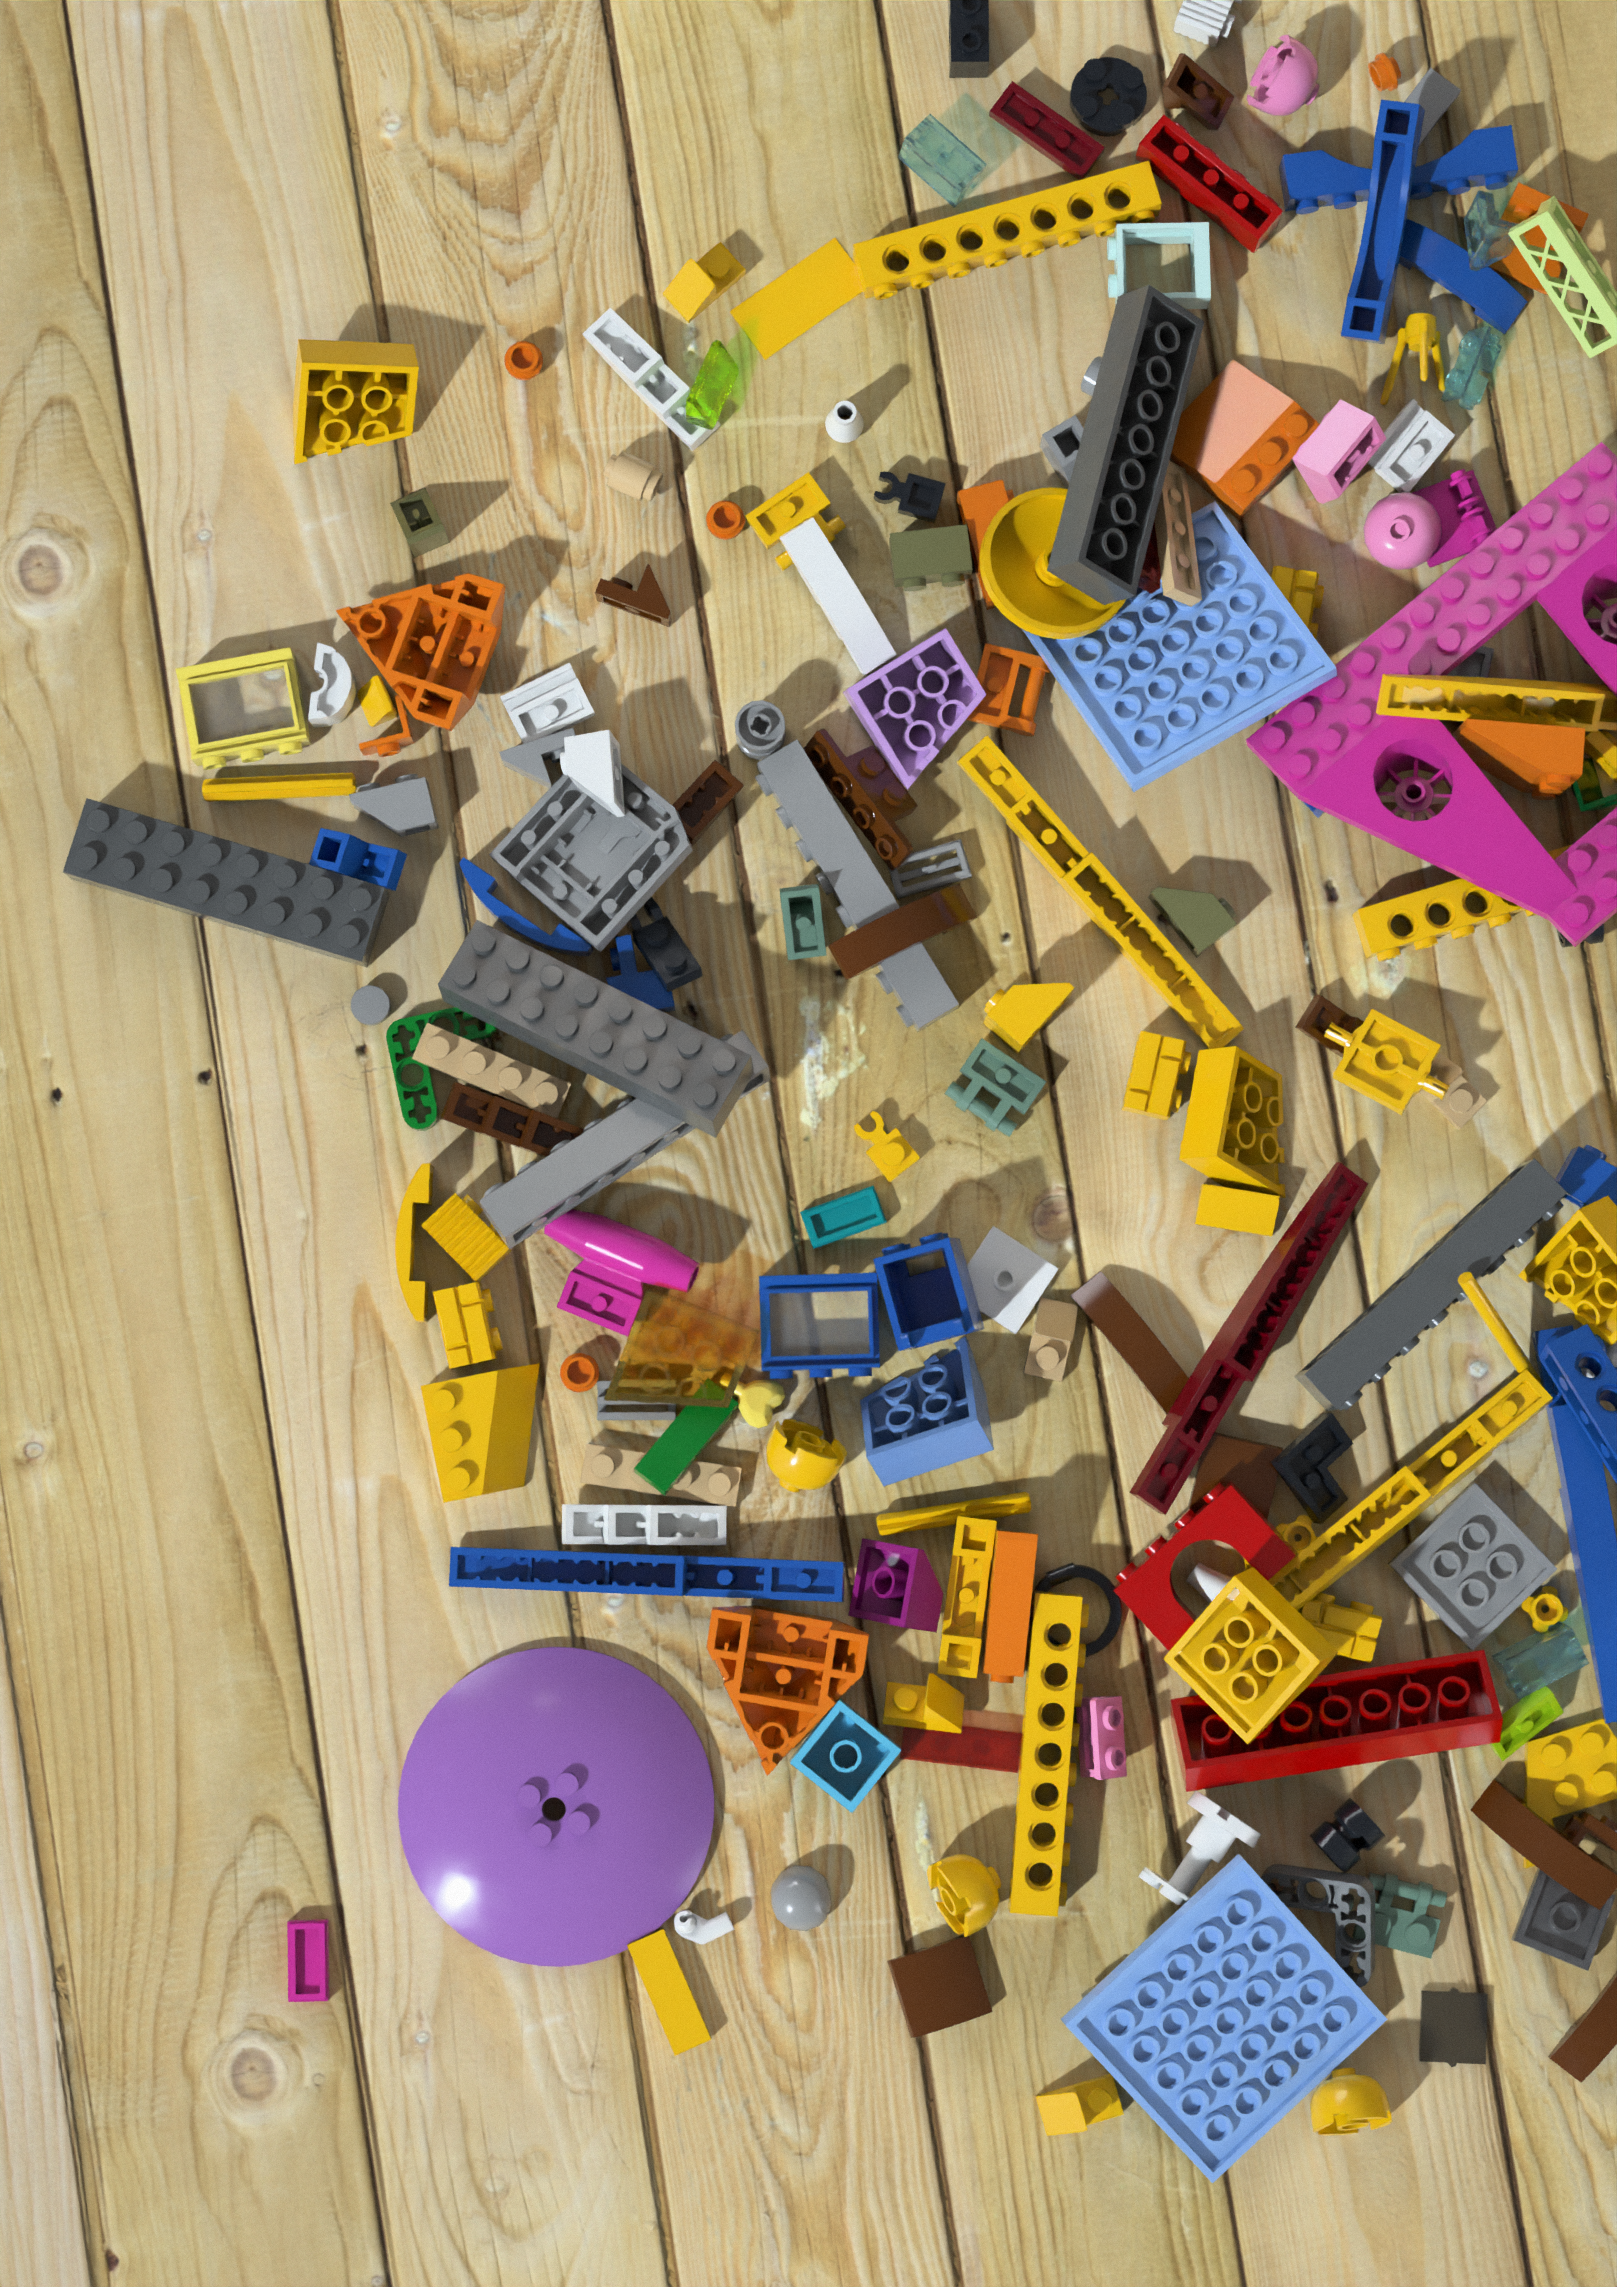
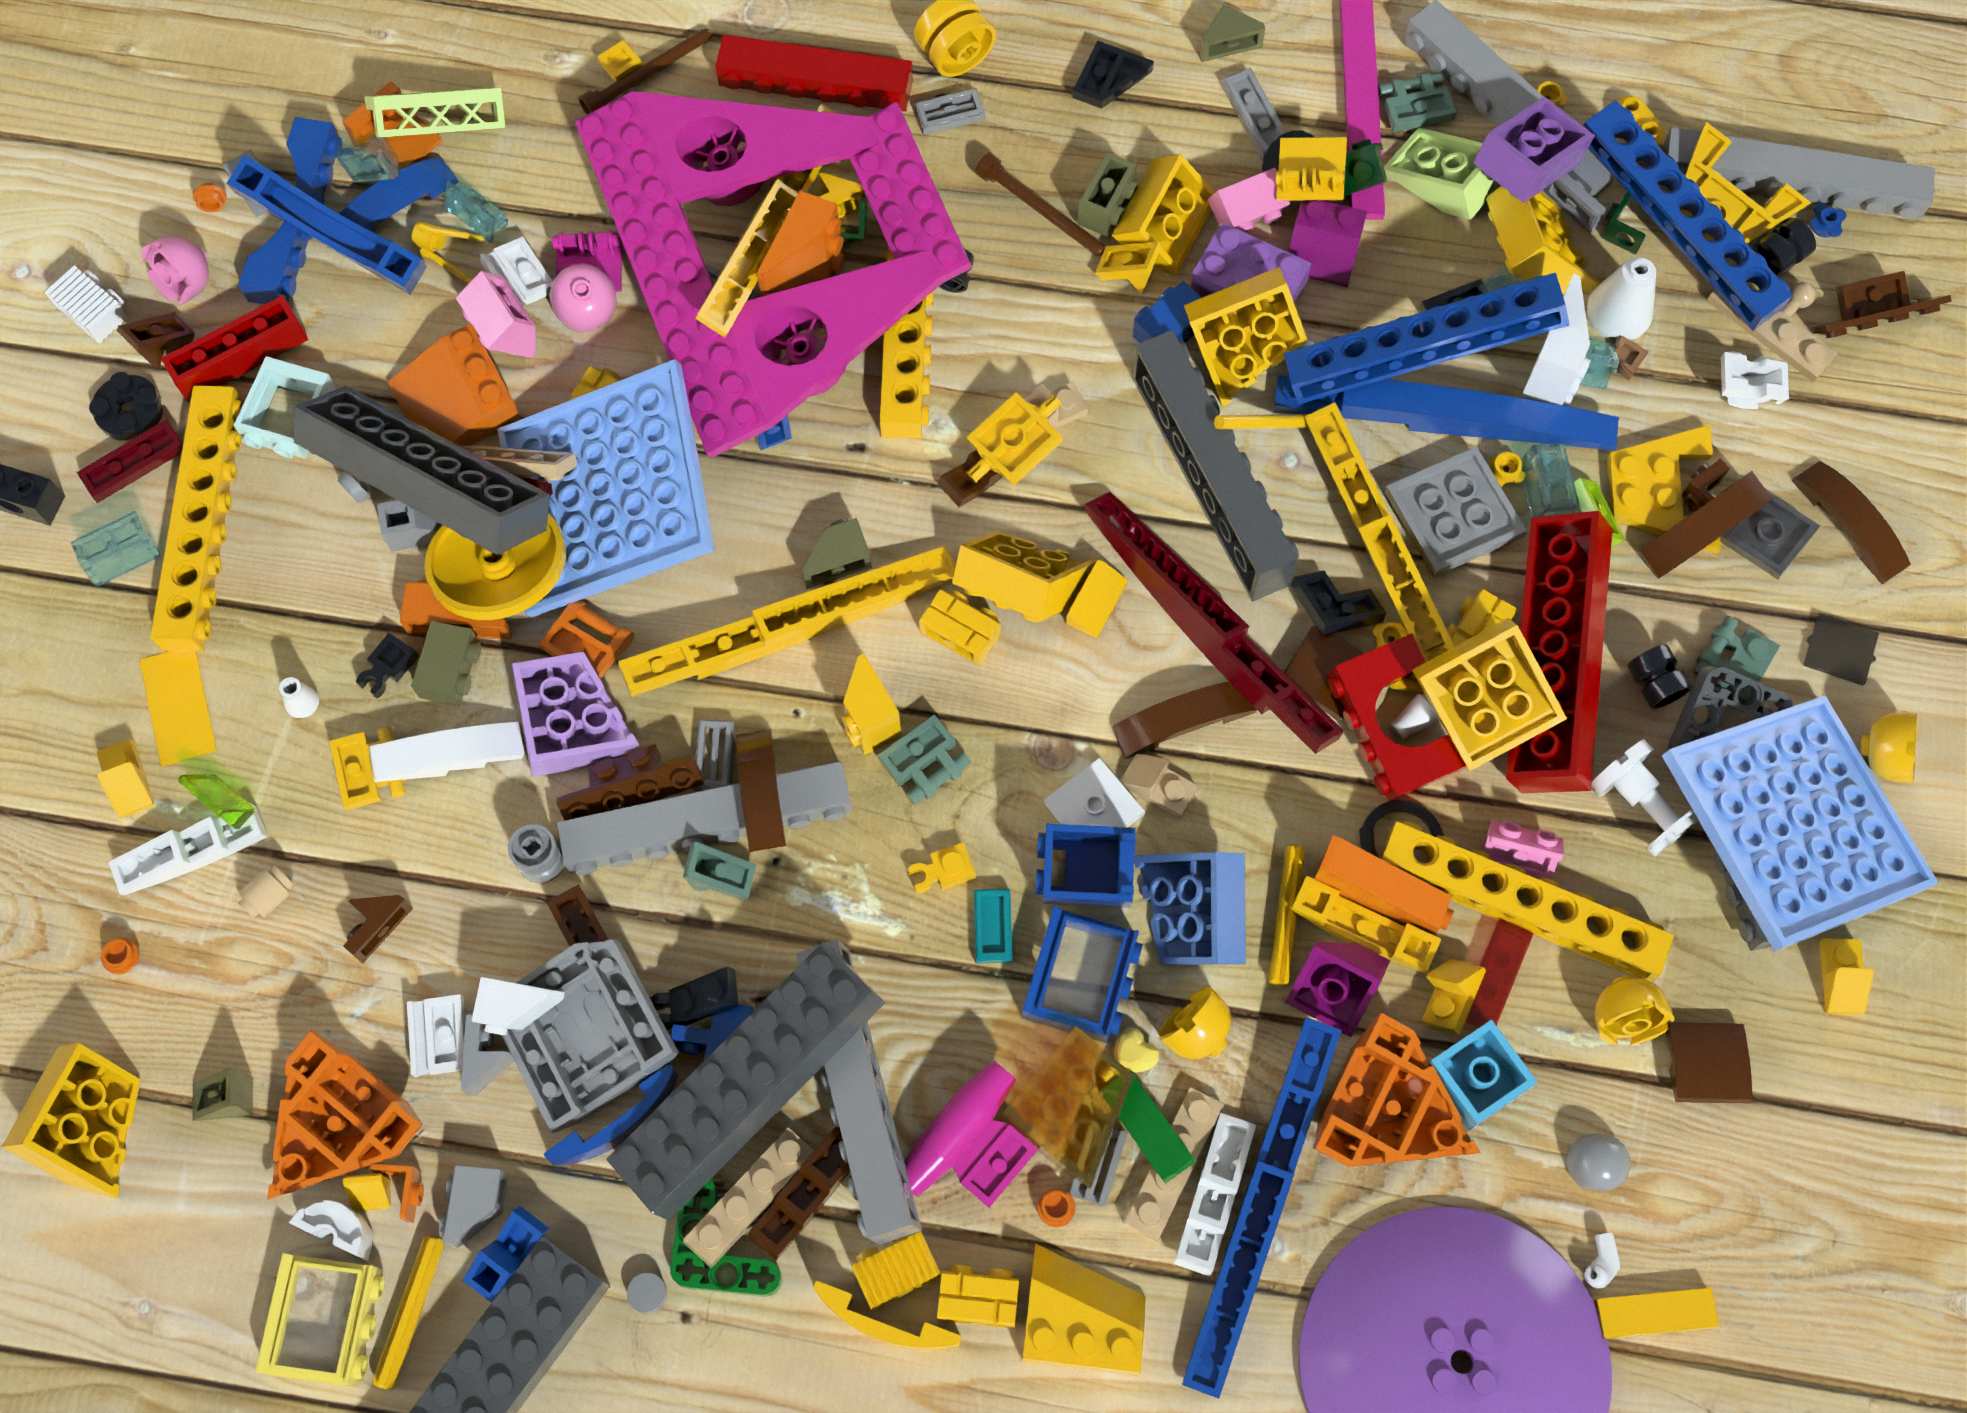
camera: 70 degrees left, 15 degrees down
(725, 520) = (339, 827): orange plate -> none

